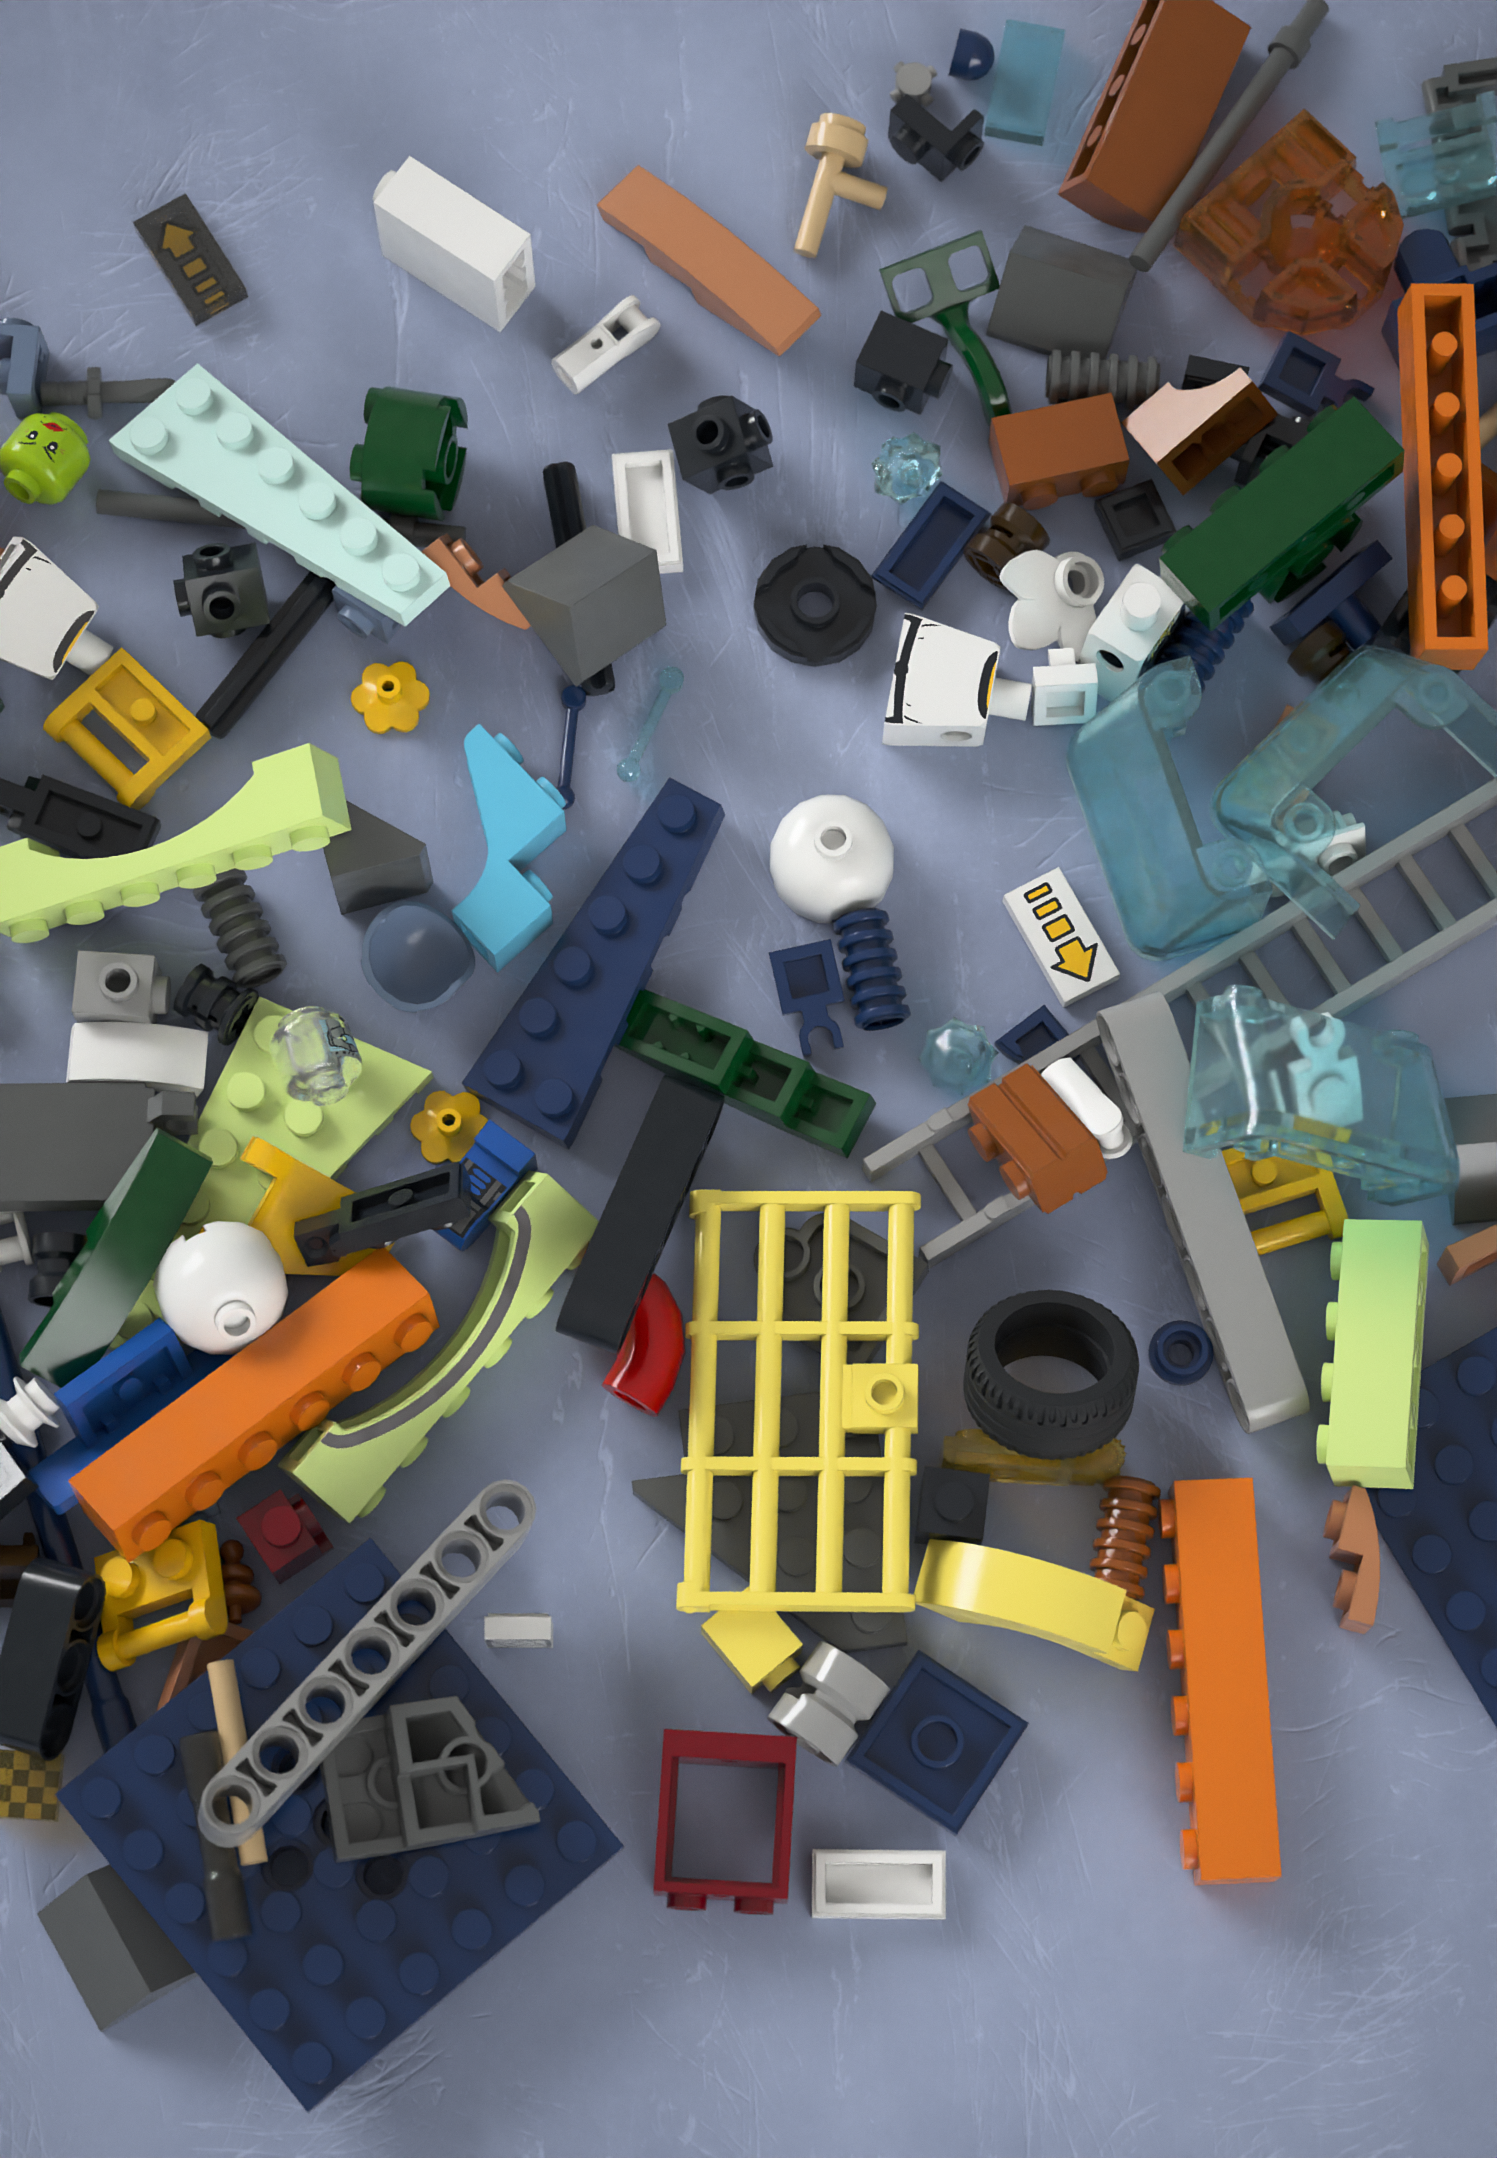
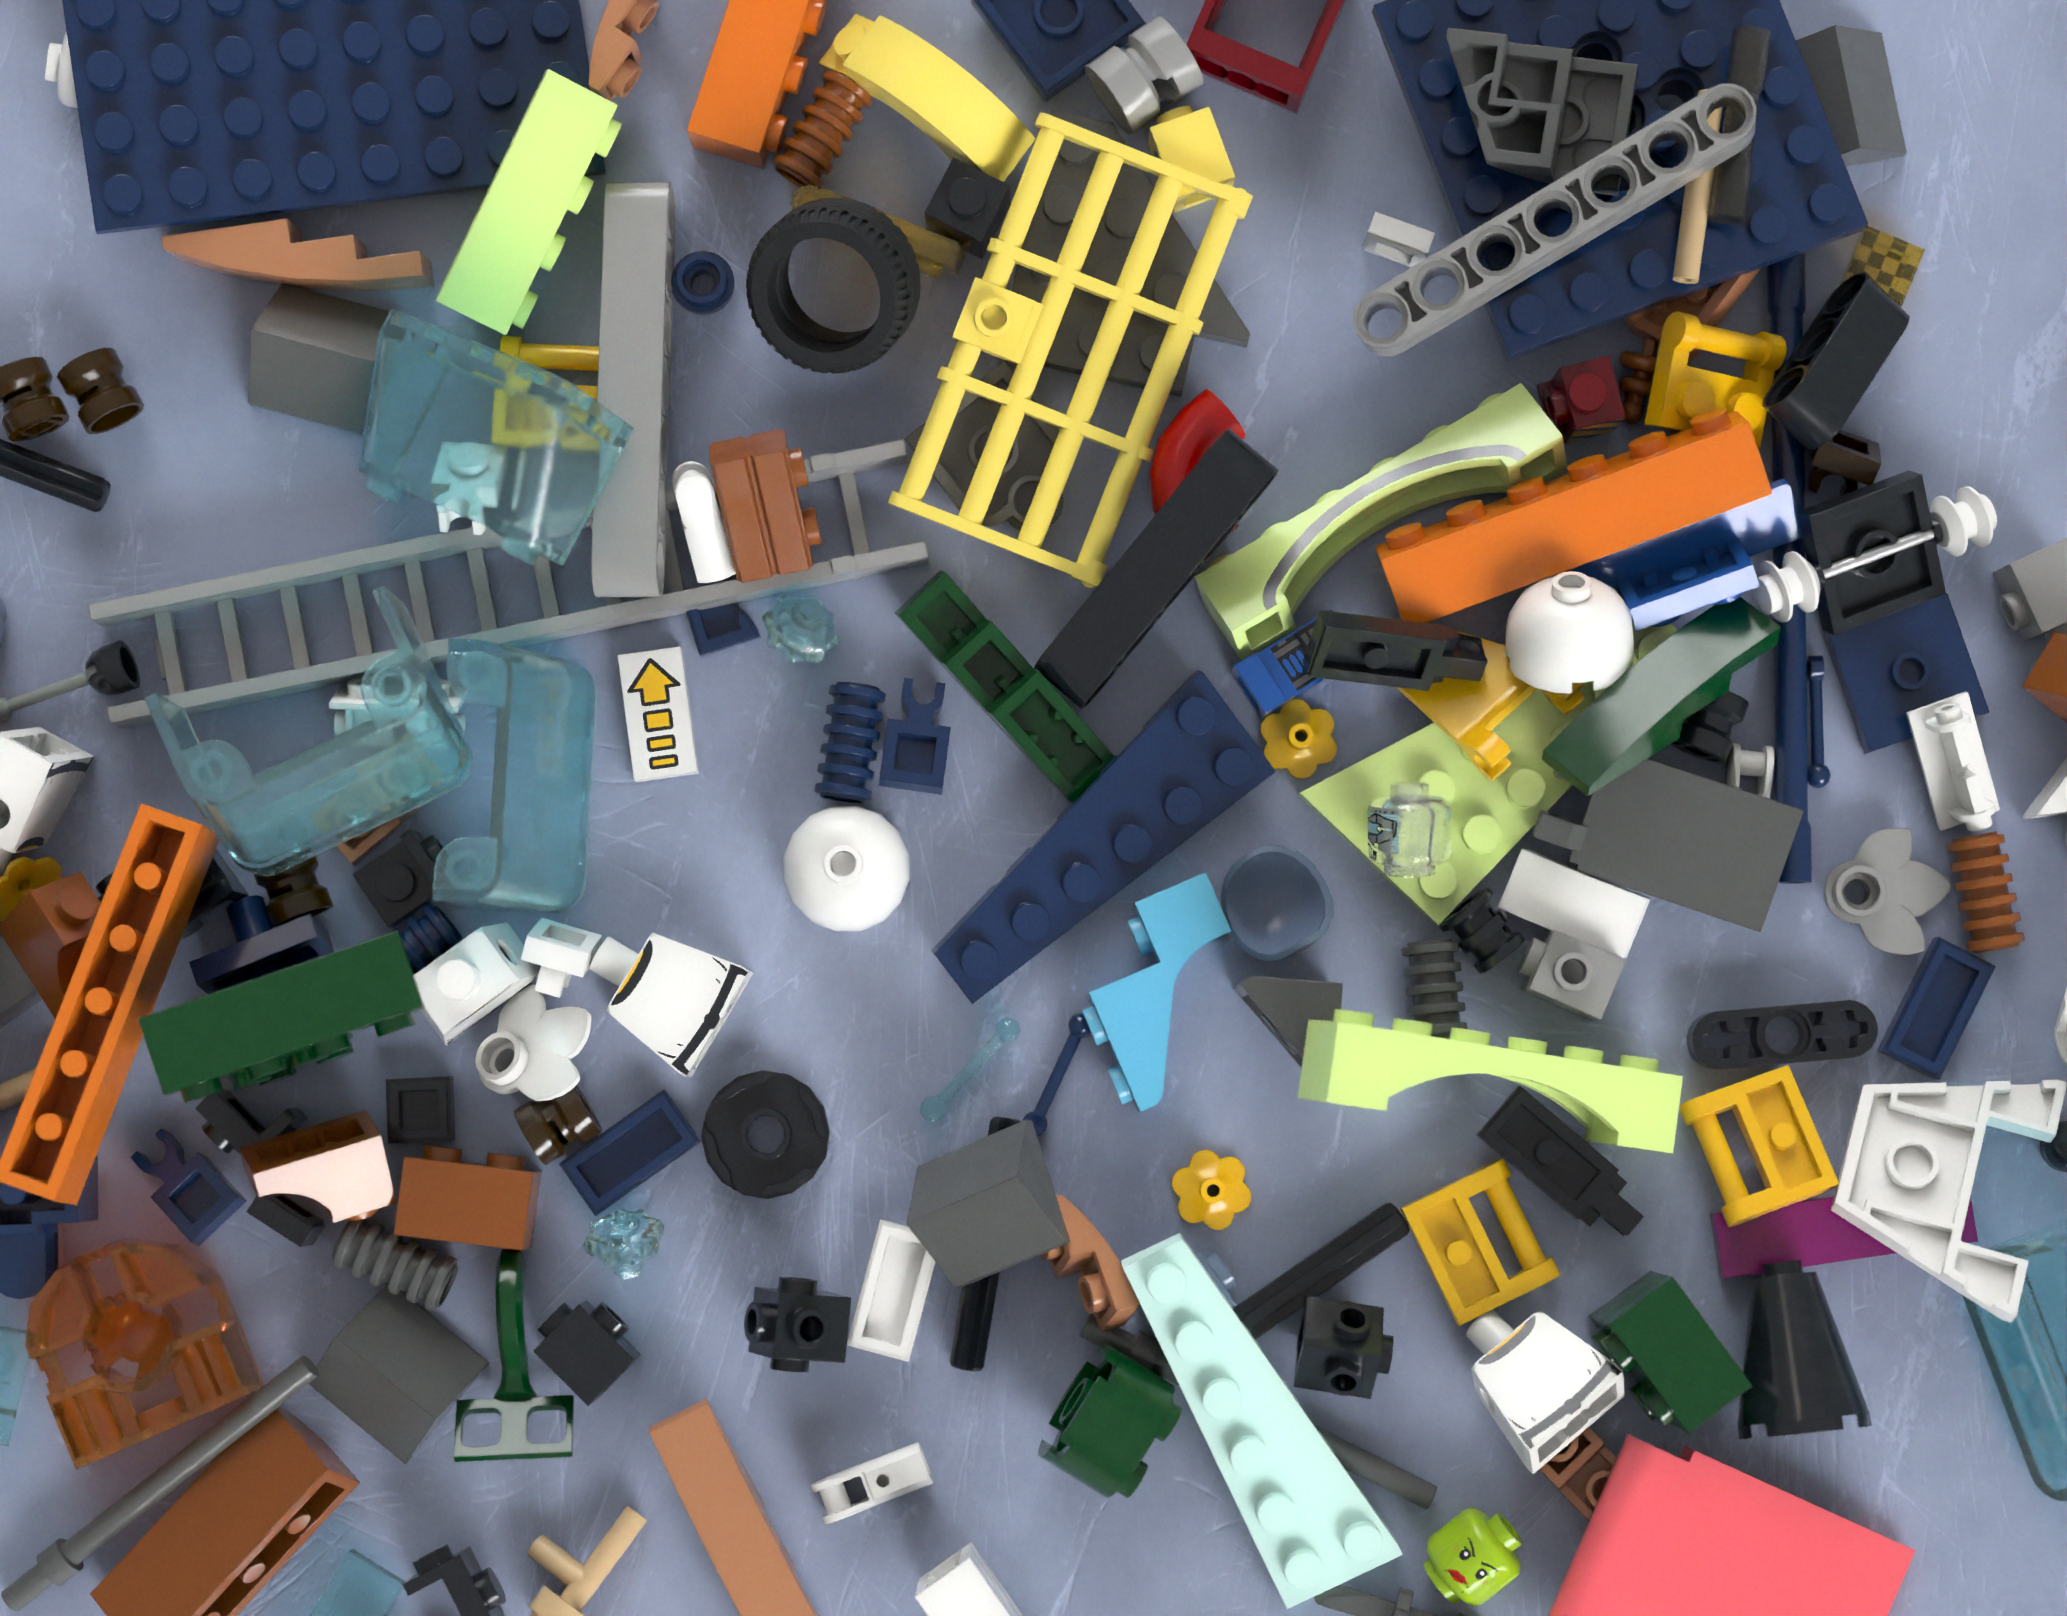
camera: 160 degrees left, 10 degrees up
(1233, 712) = (401, 878): none -> black bracket

